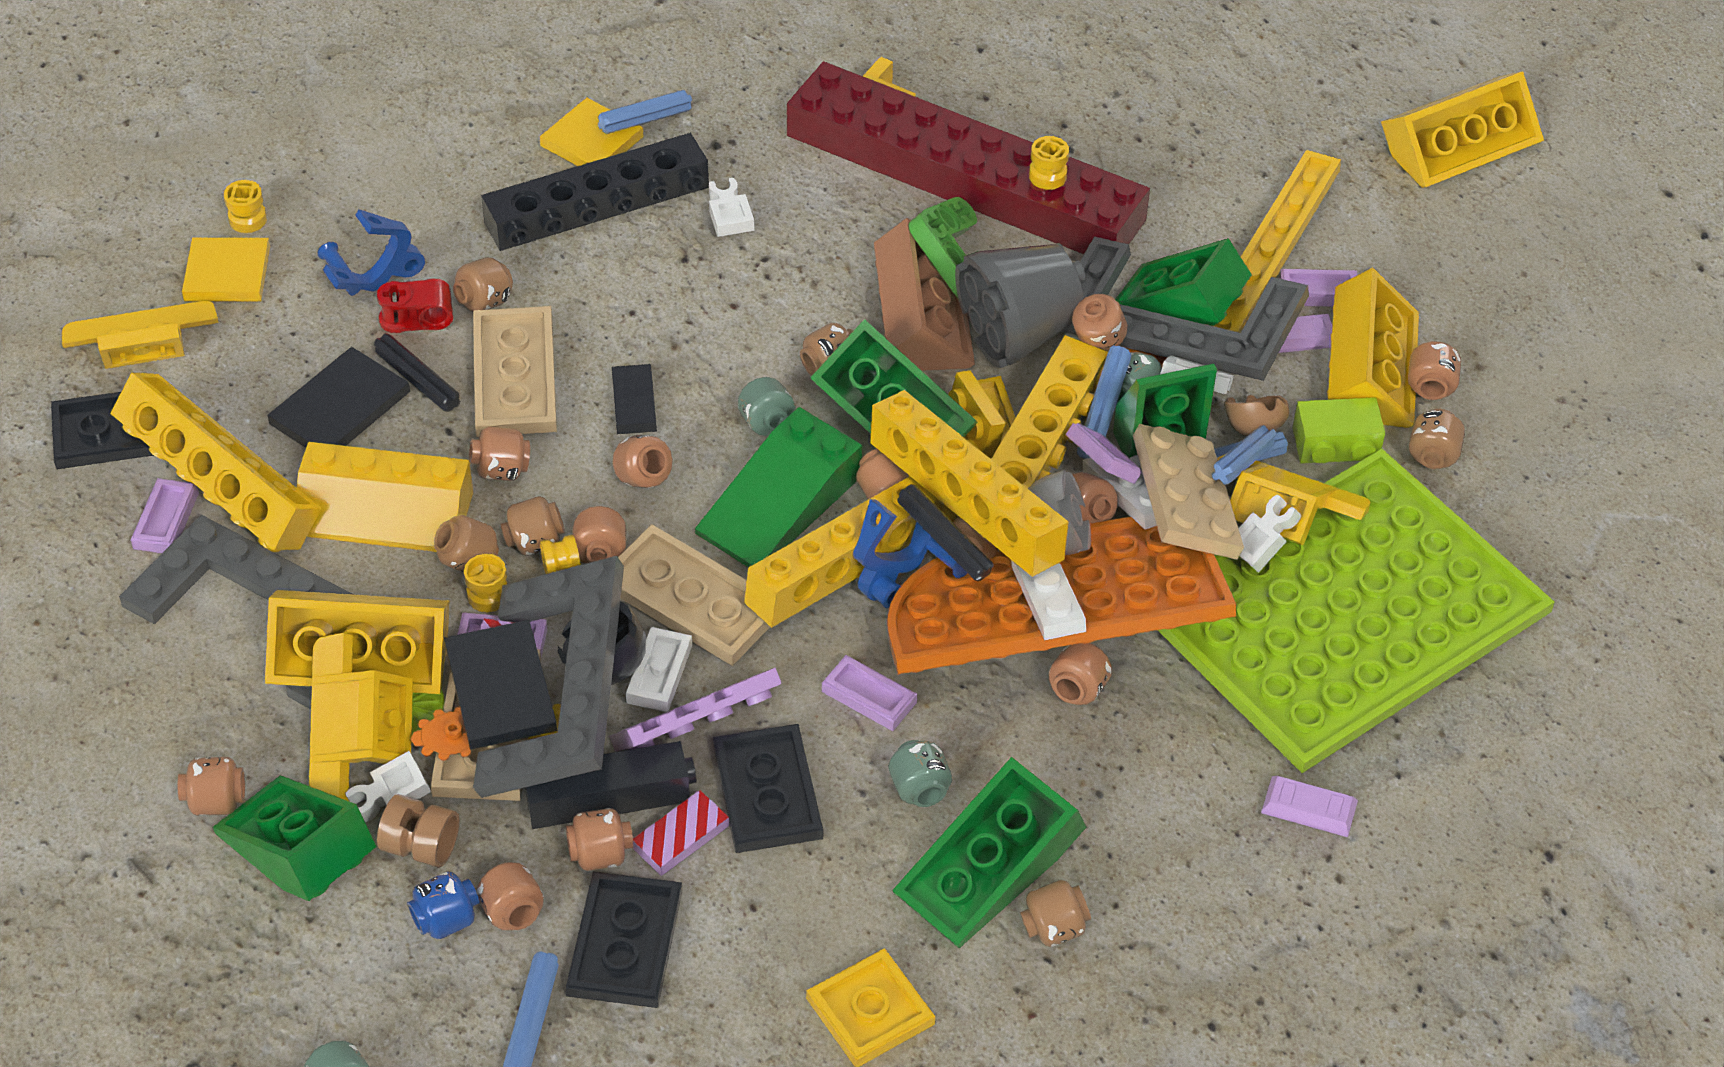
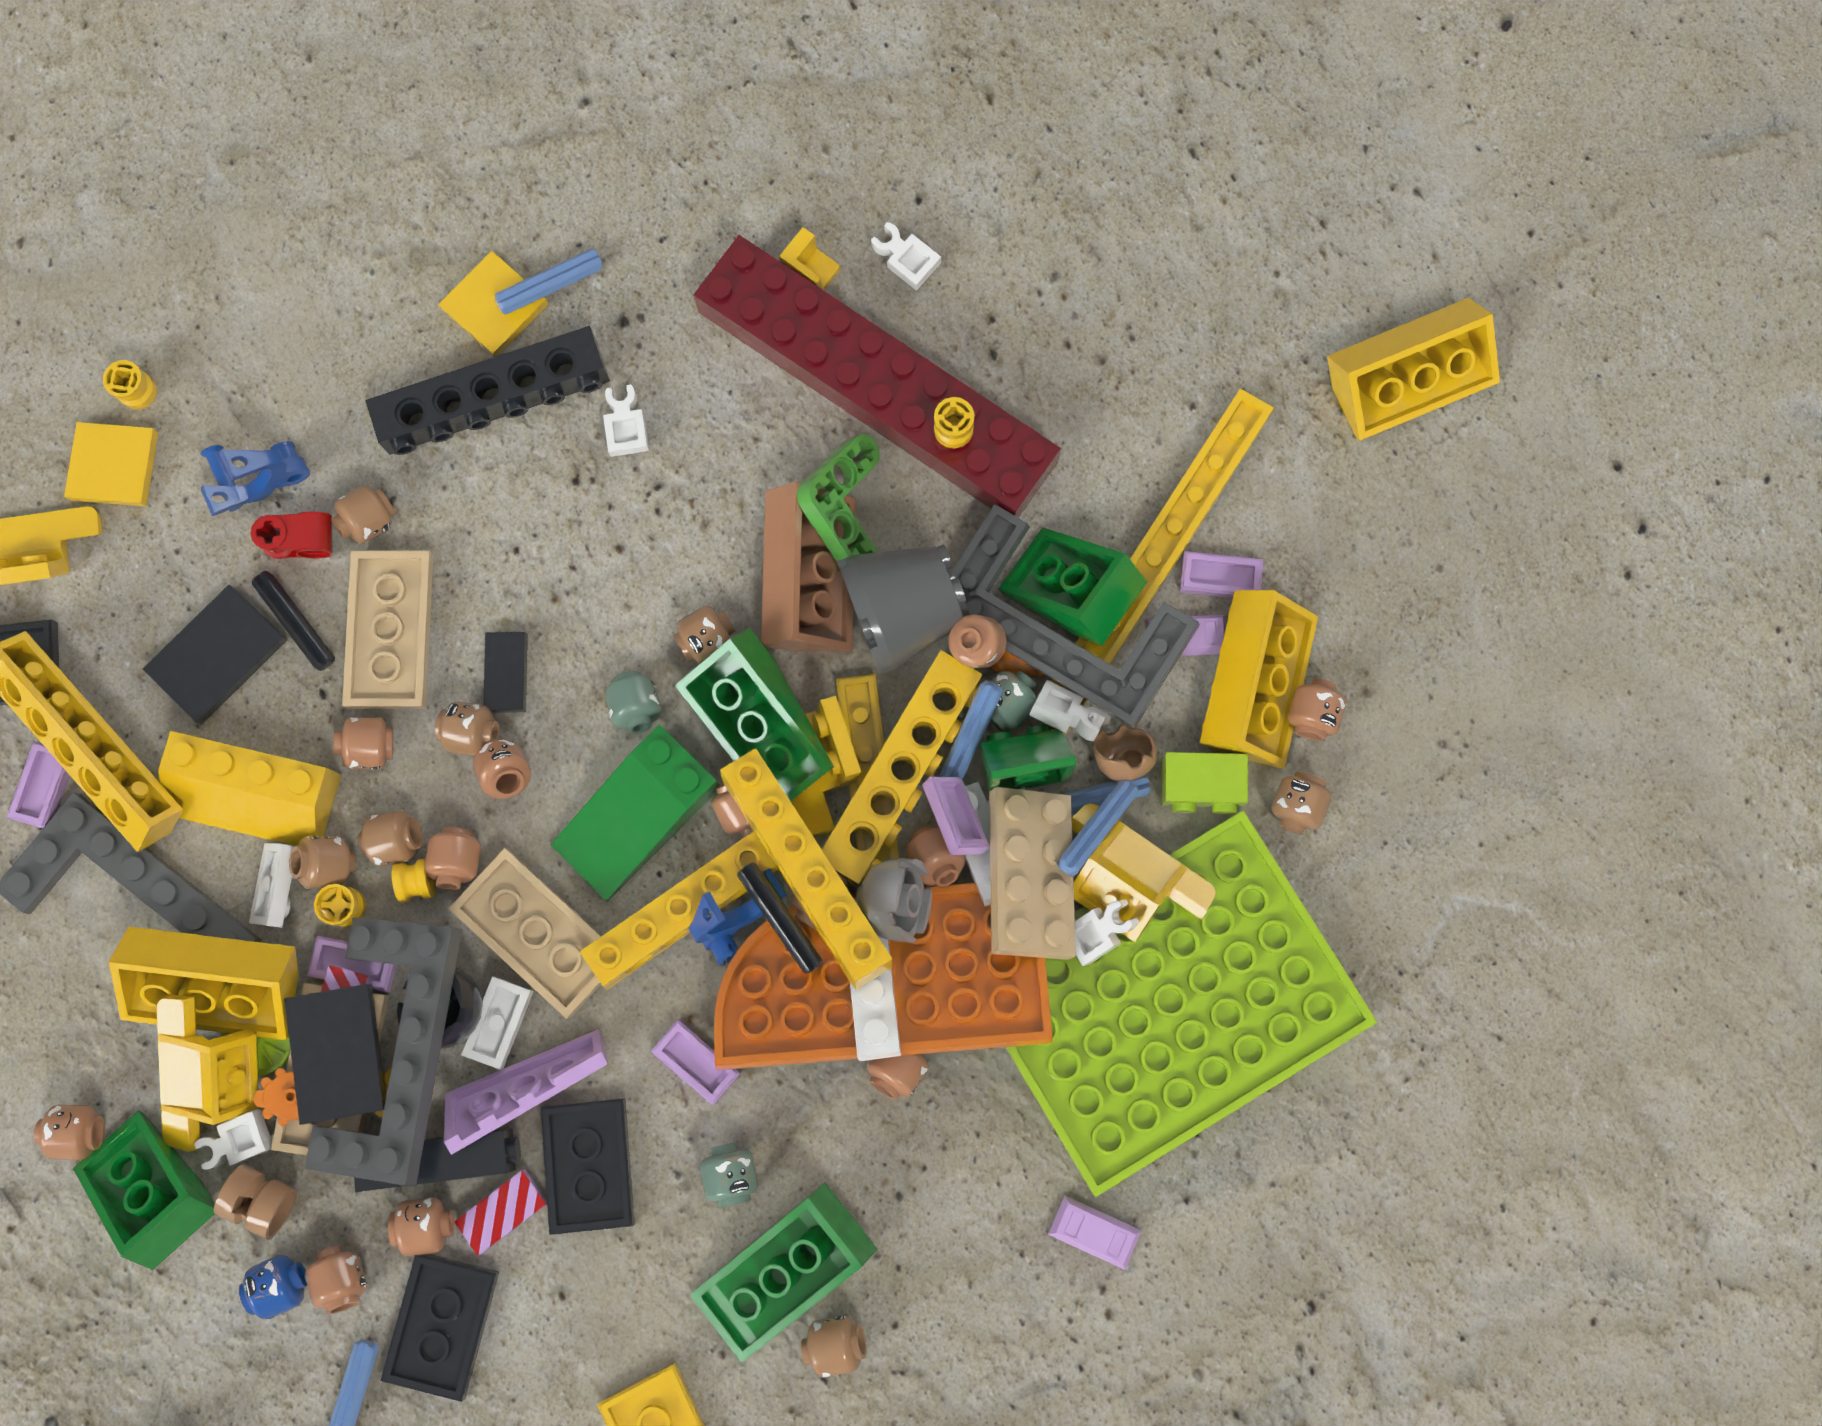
camera: 10 degrees right, 30 degrees up
(416, 566) = (272, 889): none -> white plate
(601, 432) = (465, 728): none -> medium nougat head
(978, 83) = (909, 259): none -> white plate

